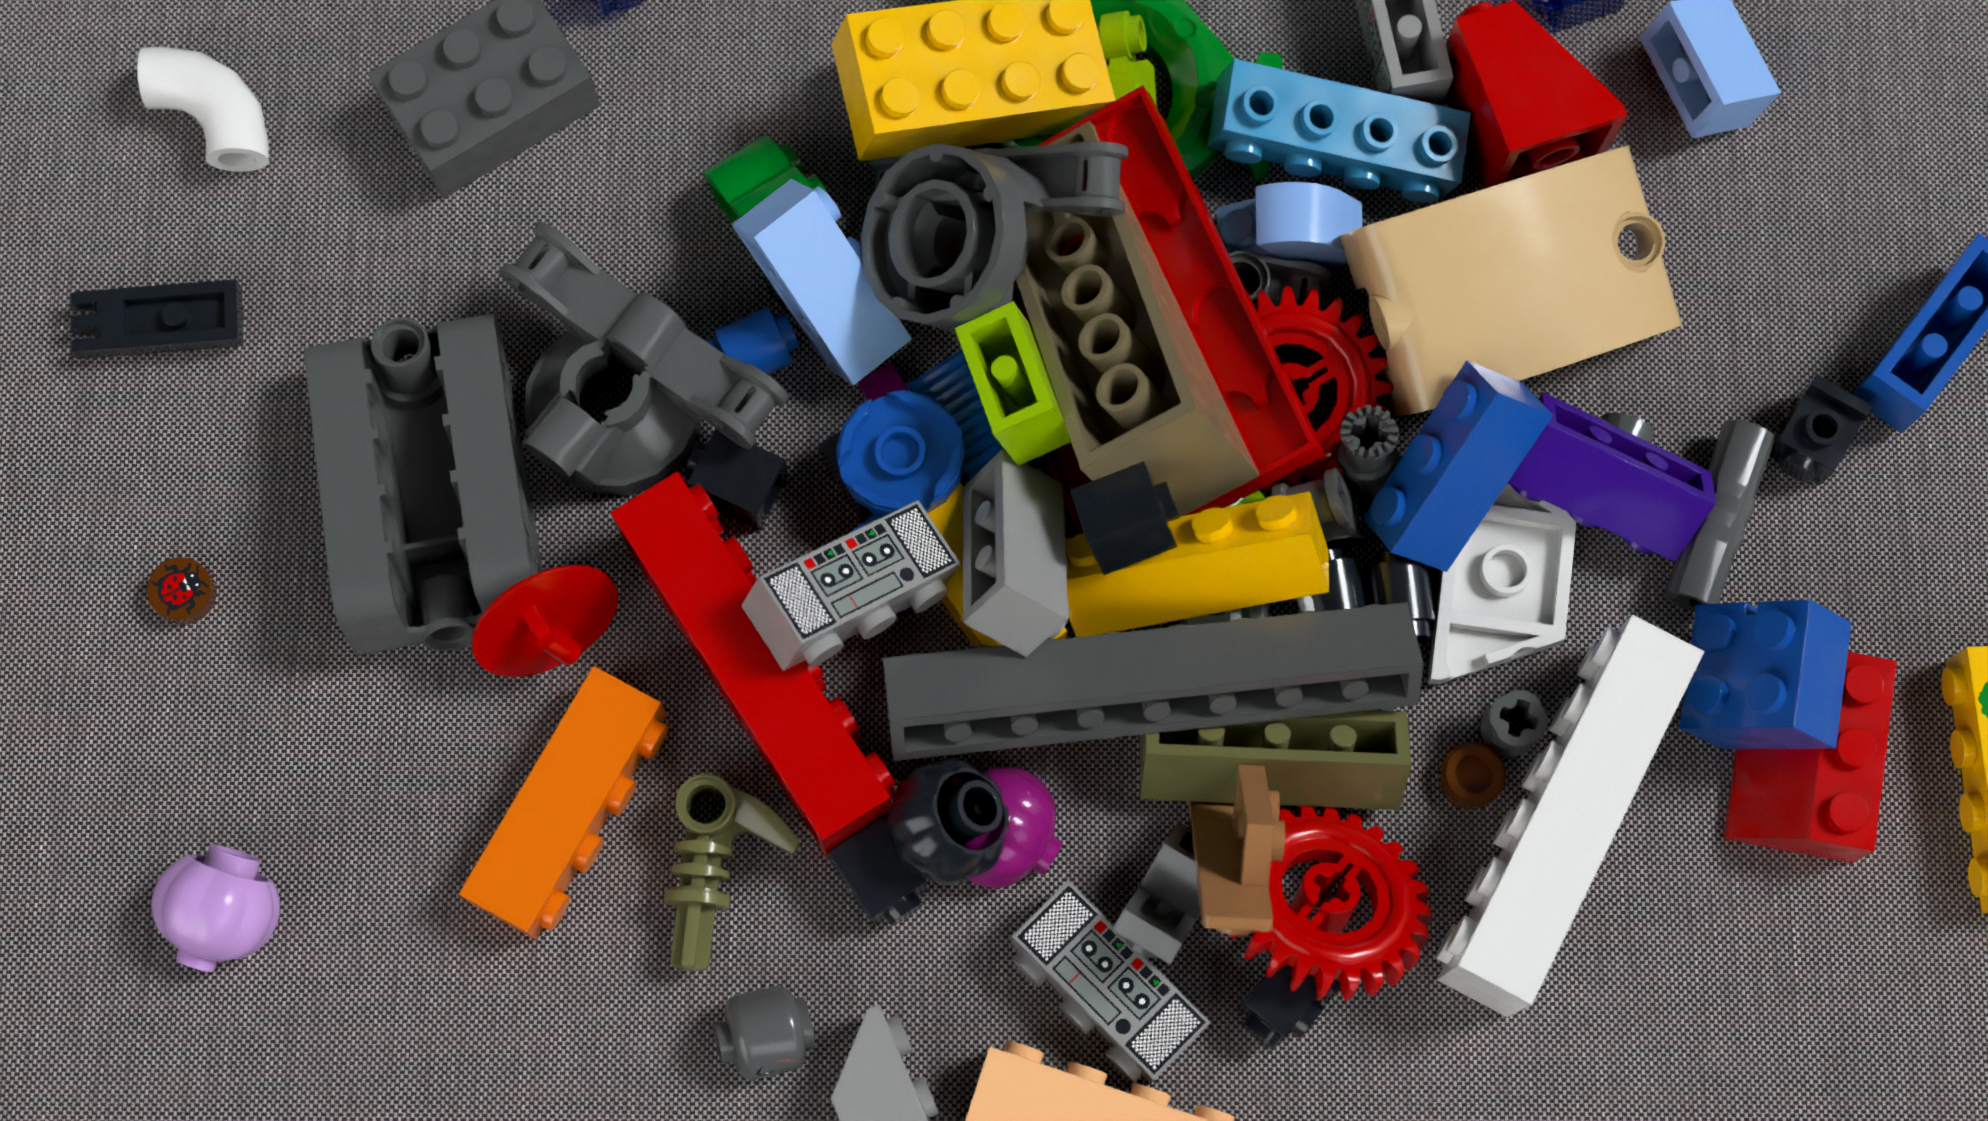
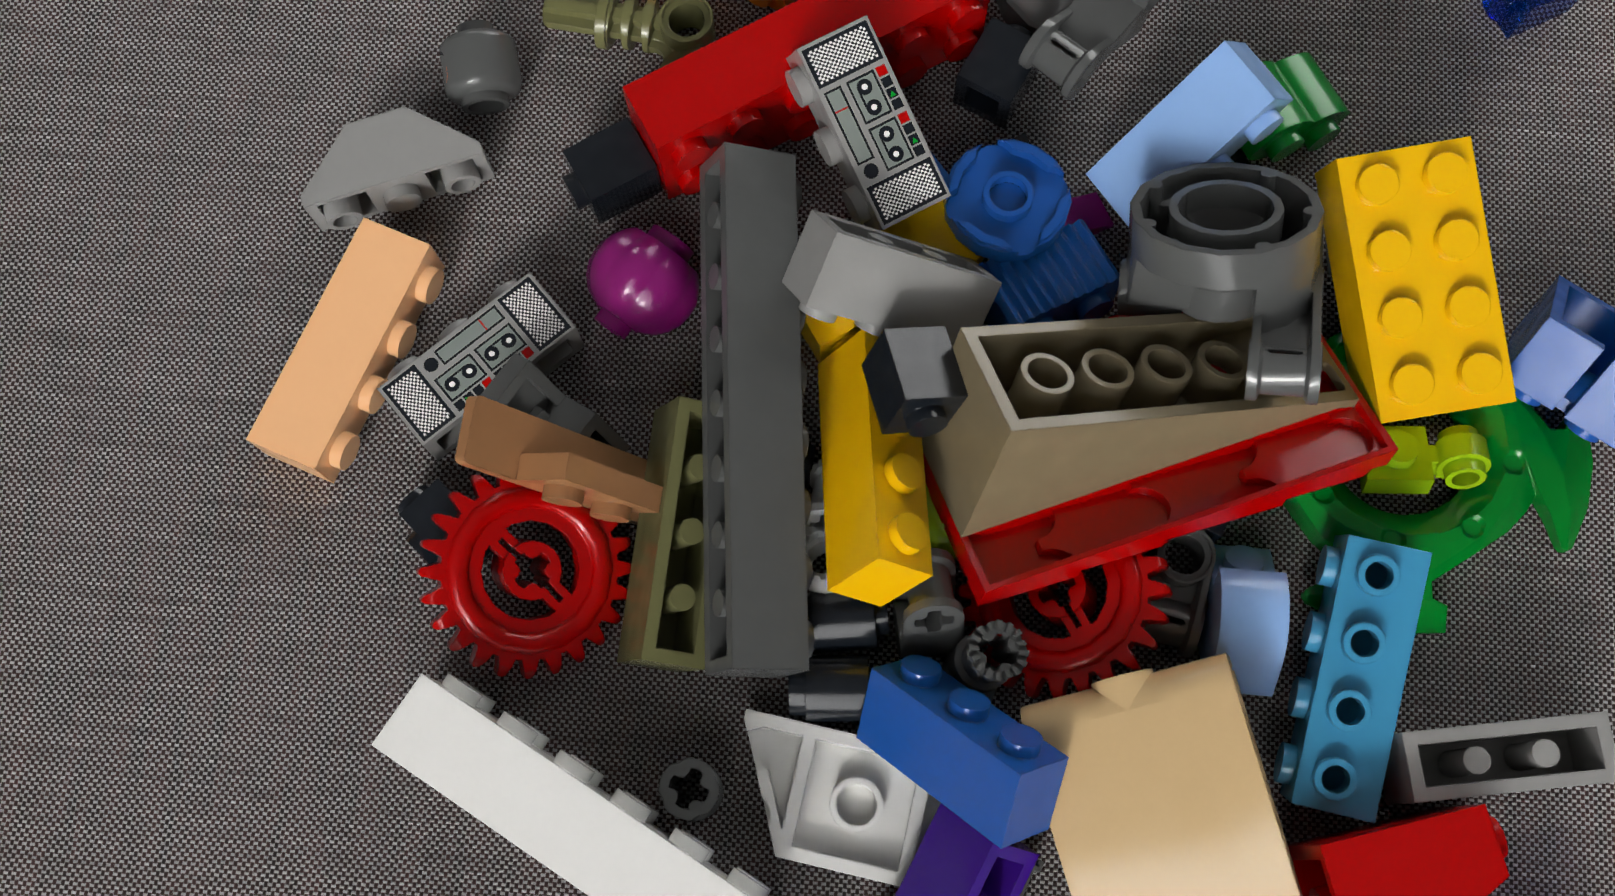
camera: 100 degrees right, 0 degrees up
(758, 340) = (1127, 88): blue brick -> none
(939, 812) = (634, 184): black plant -> none
(1013, 383) = (1067, 281): lime brick -> none
(1472, 775) = (647, 745): reddish brown tile -> none

